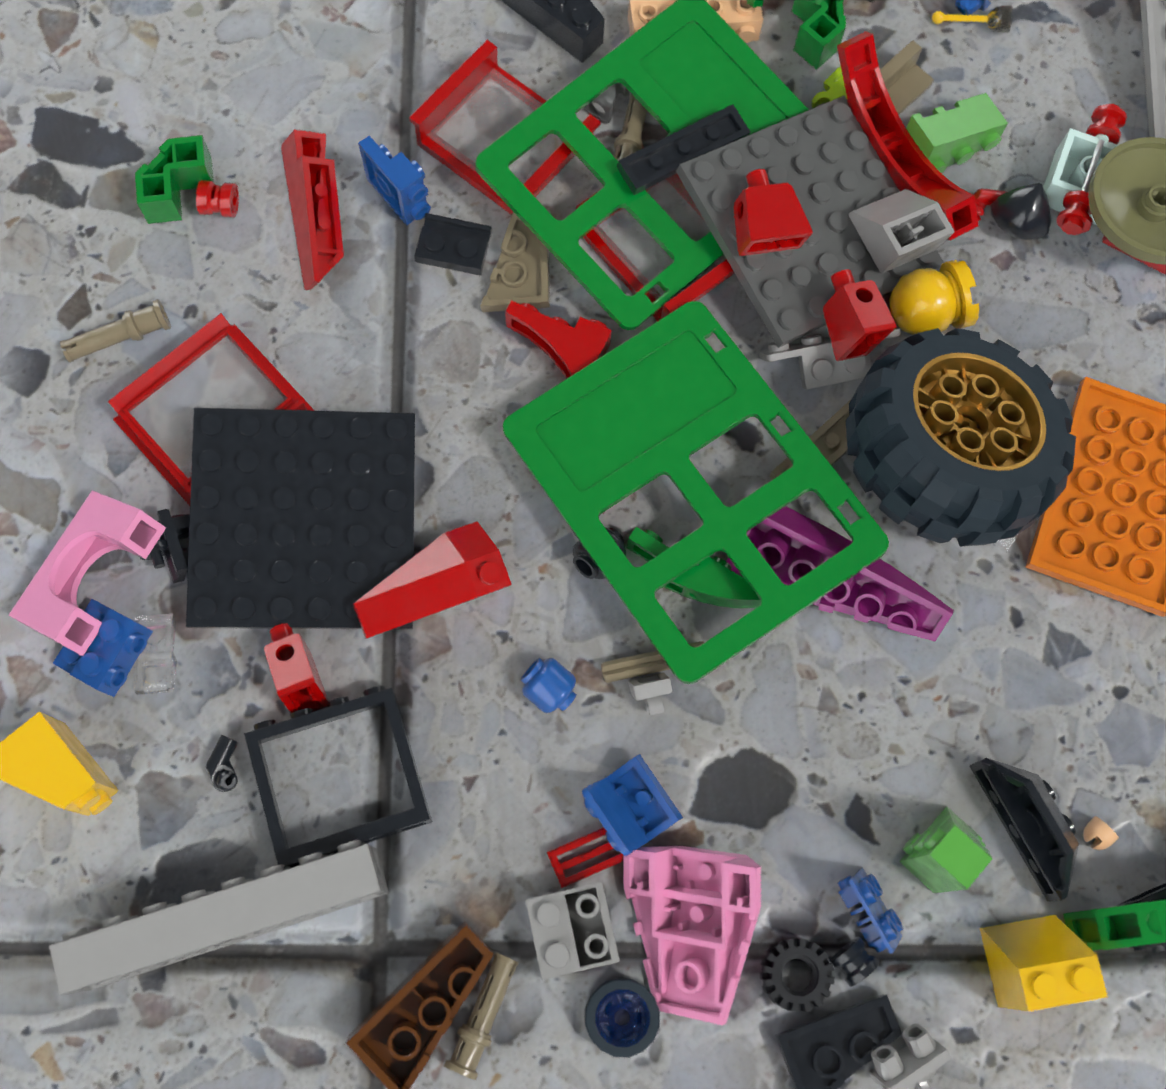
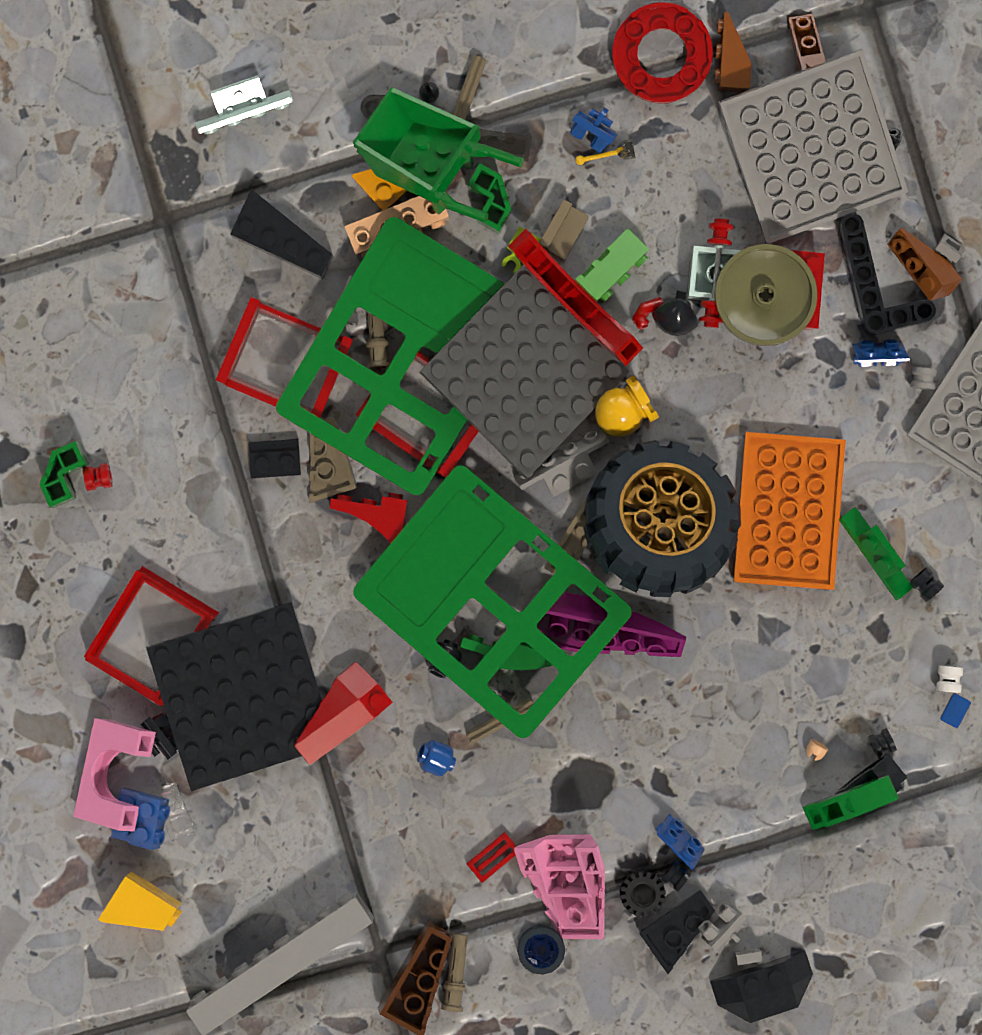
camera: 10 degrees left, 15 degrees up
(132, 326) = (73, 591): dark tan pin -> none
(219, 765) = (241, 870): black arm -> none
(294, 670) = (276, 805): torso -> none
(307, 719) = (342, 890): black window -> none
(313, 204) = (166, 460): red wedge -> none
(395, 180) = (227, 433): blue plate -> none
(572, 931) = (495, 908): light grey slope -> none
(631, 806) = (510, 822): blue bracket -> none
(650, 689) = (503, 741): light grey tile -> none
(663, 157) = (419, 351): black plate -> none
(769, 217) = (492, 395): red torso -> none
(856, 316) = (577, 456): red torso -> none
(901, 228) = (587, 367): light grey slope -> none
(946, 854) = (718, 791): bright green wedge -> none
(1033, 823) = (770, 755): black wedge -> none
(1040, 965) = (789, 845): yellow slope -> none

